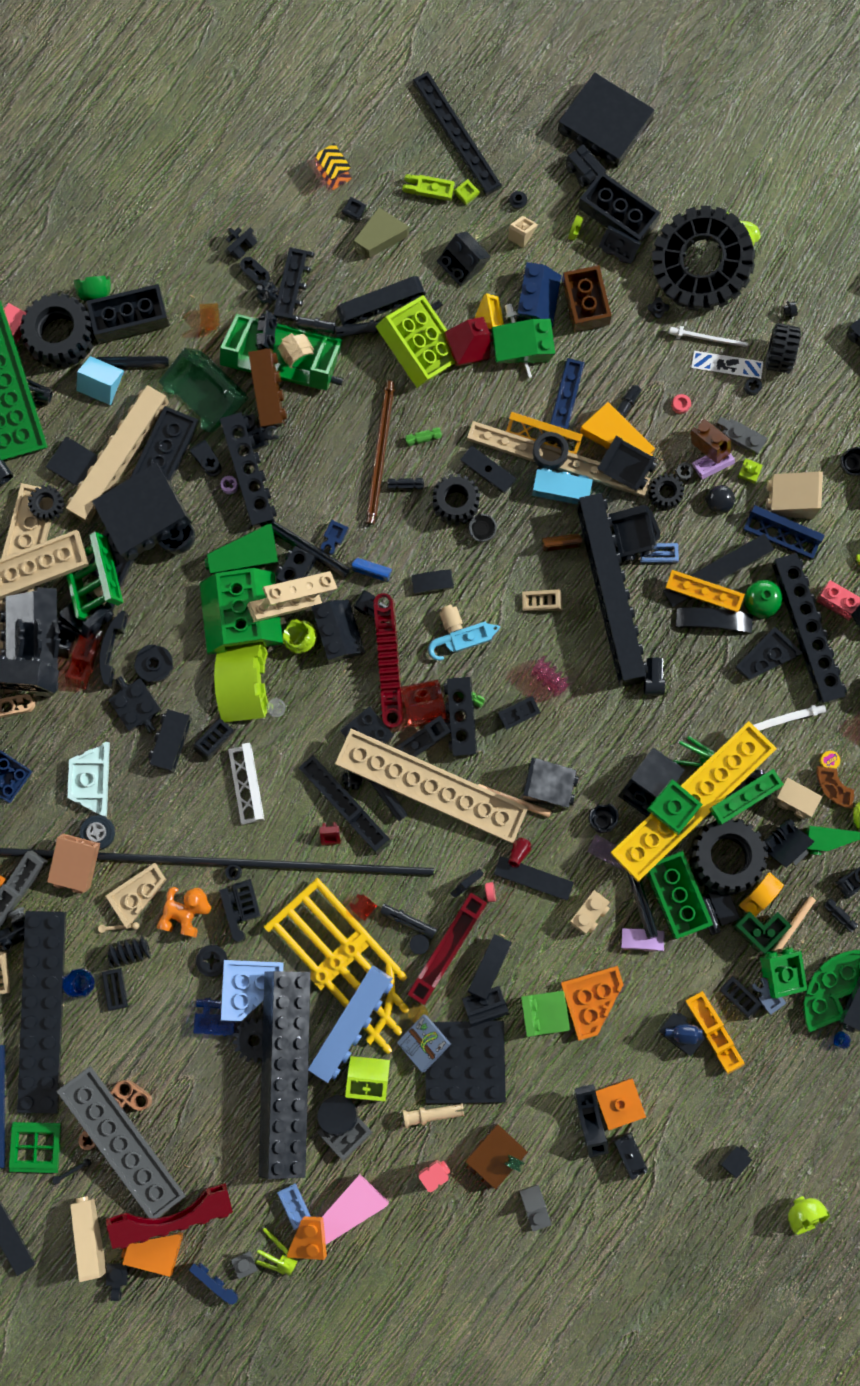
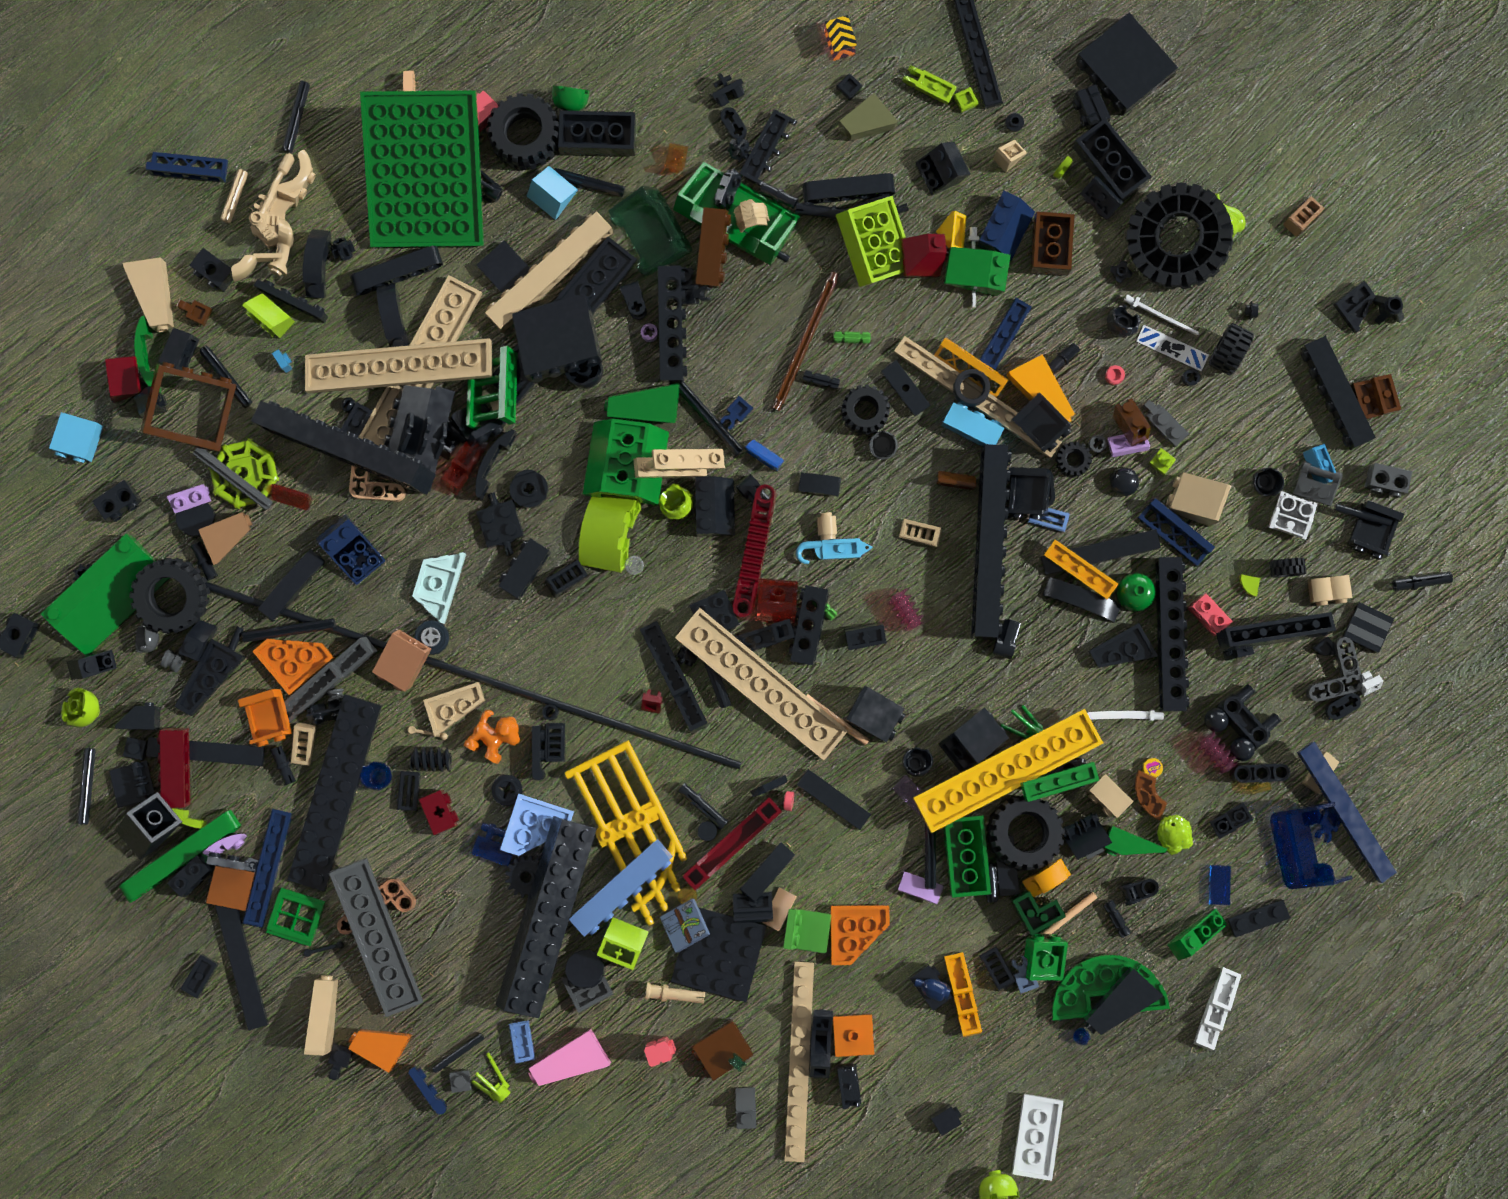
camera: 15 degrees right, 5 degrees up
(51, 513) = (461, 293): black tyre -> none
(130, 1229) = (362, 1018): dark red arch -> none
(140, 995) = (437, 822): none -> dark red brick
(234, 1237) = (457, 1053): none -> black bar
(253, 784) = (592, 631): white fence -> none
(299, 570) = (694, 438): black brick -> none
(309, 1240) = (526, 1076): orange wing -> none
(363, 907) = (664, 780): clear red tile -> none
(512, 995) = (781, 904): none -> light nougat slope
(520, 850) = (827, 770): dark red cone -> none
(575, 1147) = (799, 1061): none -> tan plate
(589, 912) = (877, 847): tan brick -> none
(673, 354) = (1122, 323): none -> black hair
(674, 807) = (987, 772): green tile -> none
(806, 222) = (1297, 226): none -> medium nougat slope
(829, 1152) = (1037, 1137): none -> white plate

